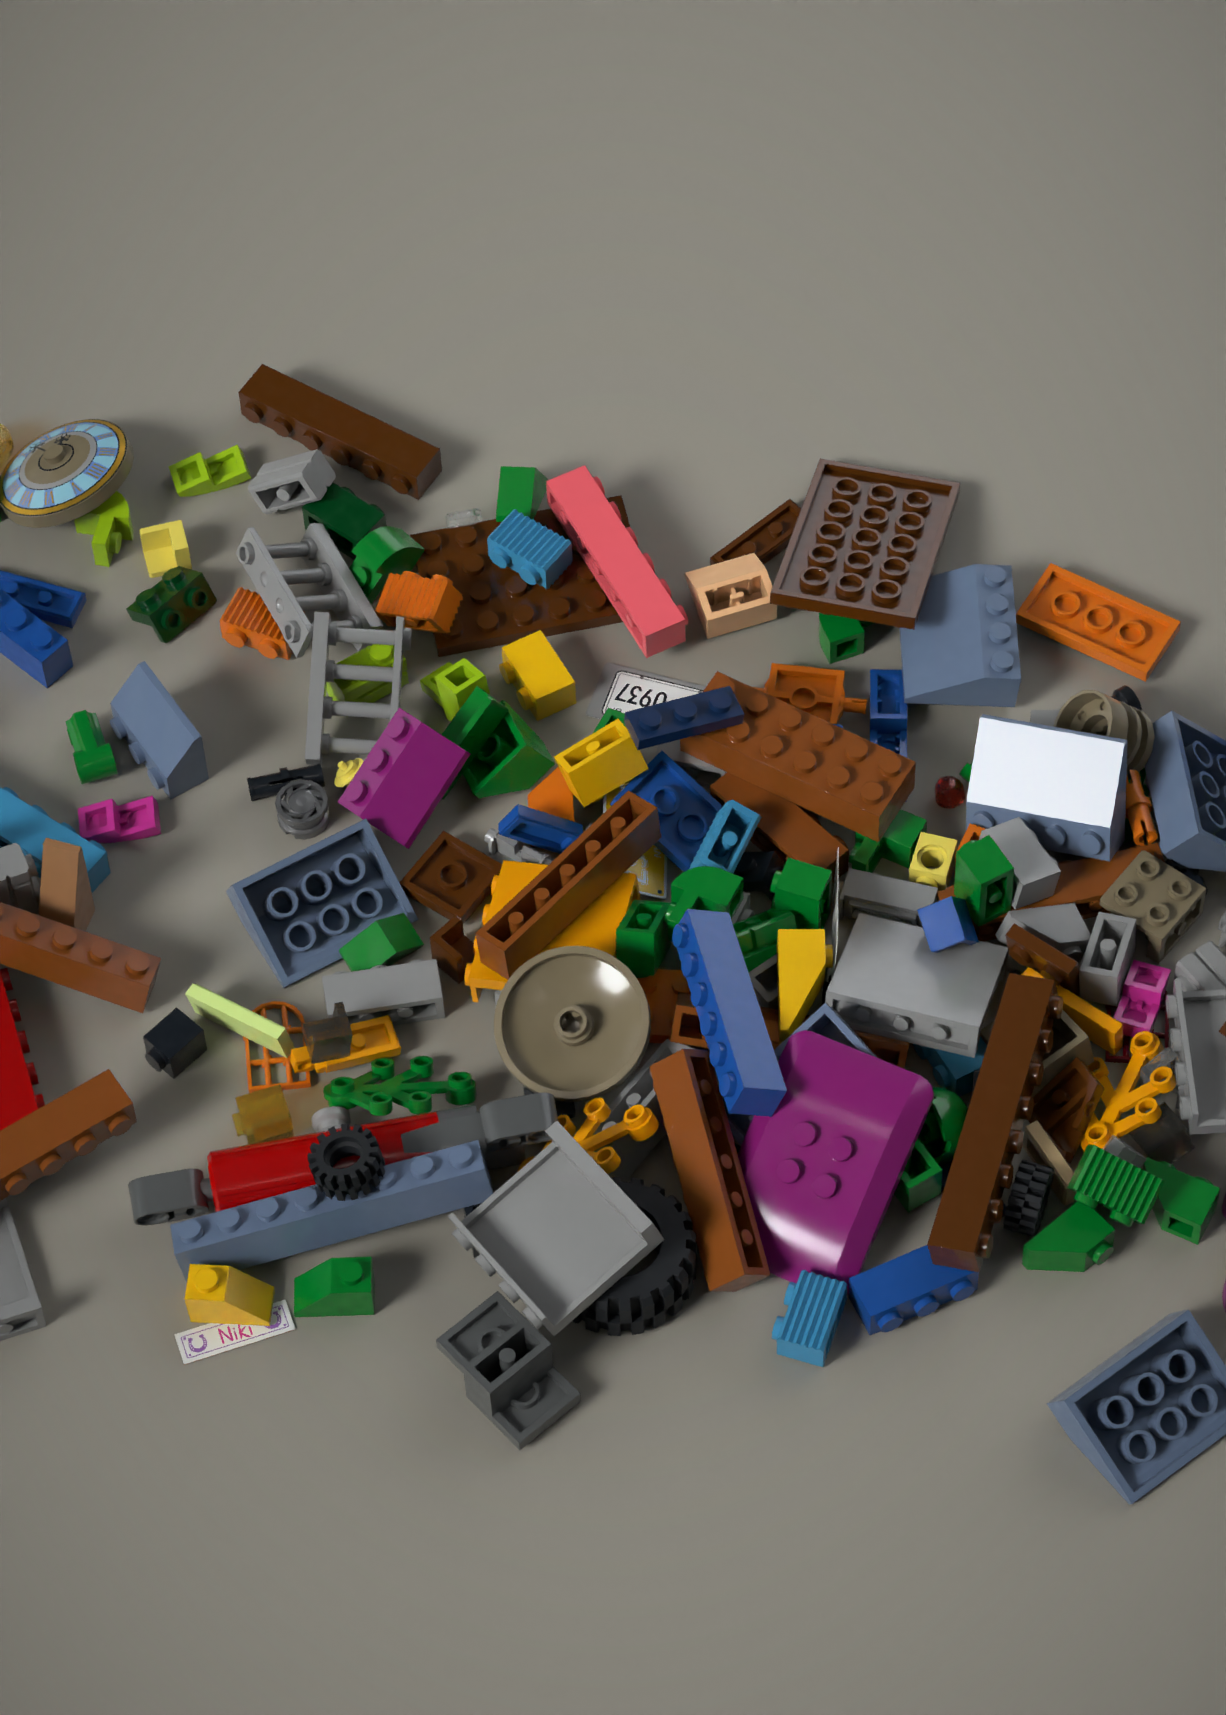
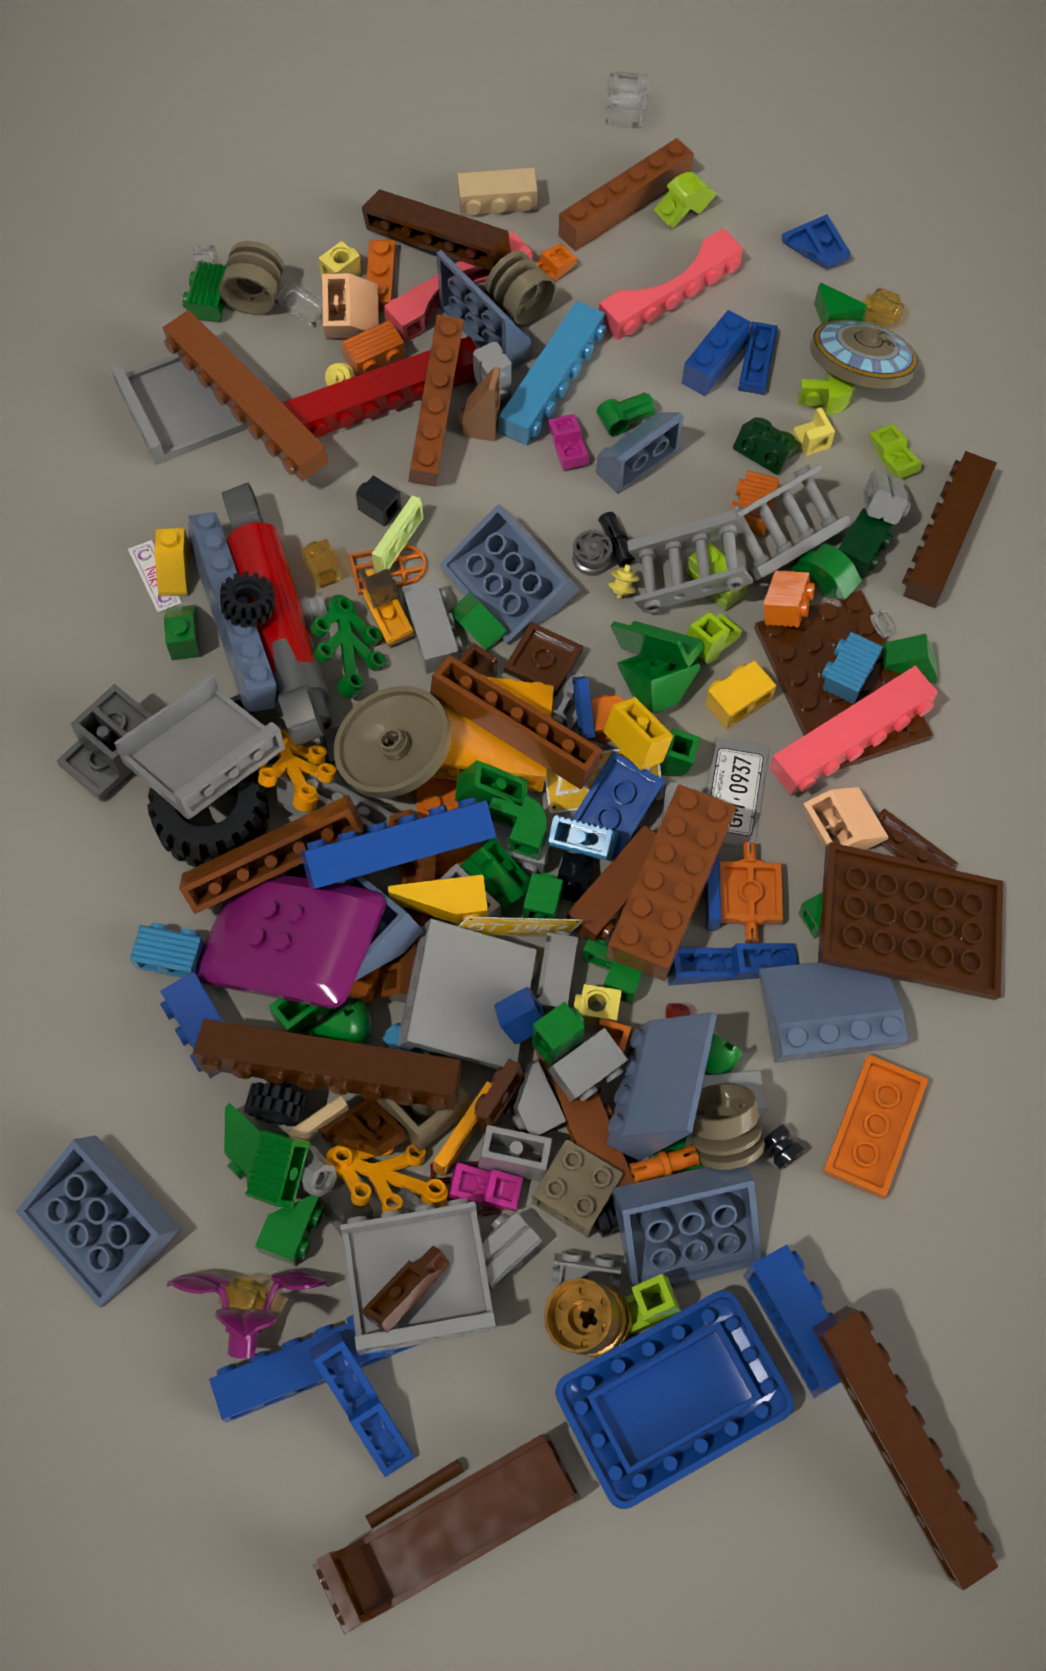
camera: 80 degrees right, 10 degrees up
(403, 778) = (613, 603): magenta slope -> none
(683, 717) = (674, 779): dark blue plate -> none

